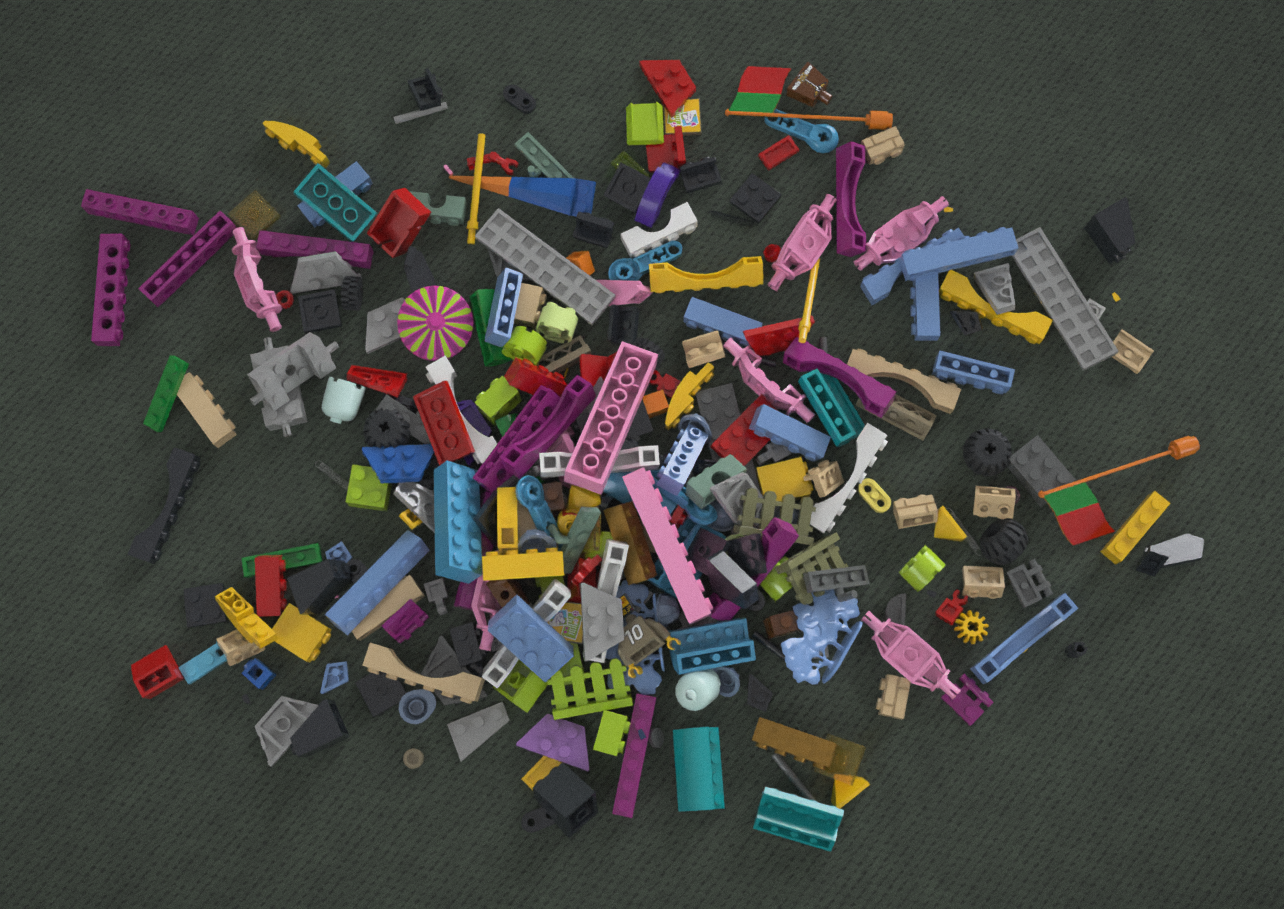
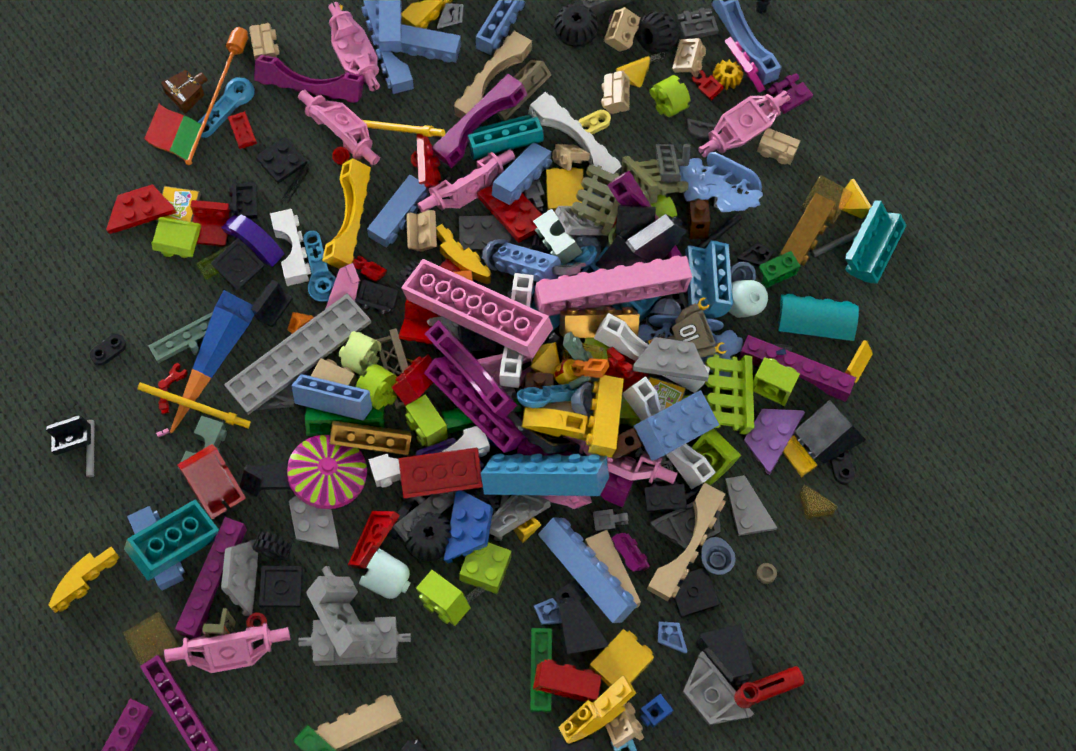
camera: 85 degrees left, 10 degrees down
(268, 273) = (225, 627): none -> olive panel
(308, 795) = (784, 681): none -> red piece
(326, 454) = (442, 598): none -> lime brick
(471, 352) = (370, 437): none -> pearl gold brick
(490, 796) = (815, 504): none -> clear yellow slope
(564, 542) = (592, 368): none -> orange plate
(651, 312) = (370, 269): none -> red plate
(657, 821) = (860, 360): none -> yellow slope
(673, 498) = (568, 269): none -> flat silver plate
(742, 718) = (779, 269): none -> green bracket
(985, 643) = (743, 59): none -> dark pink wing

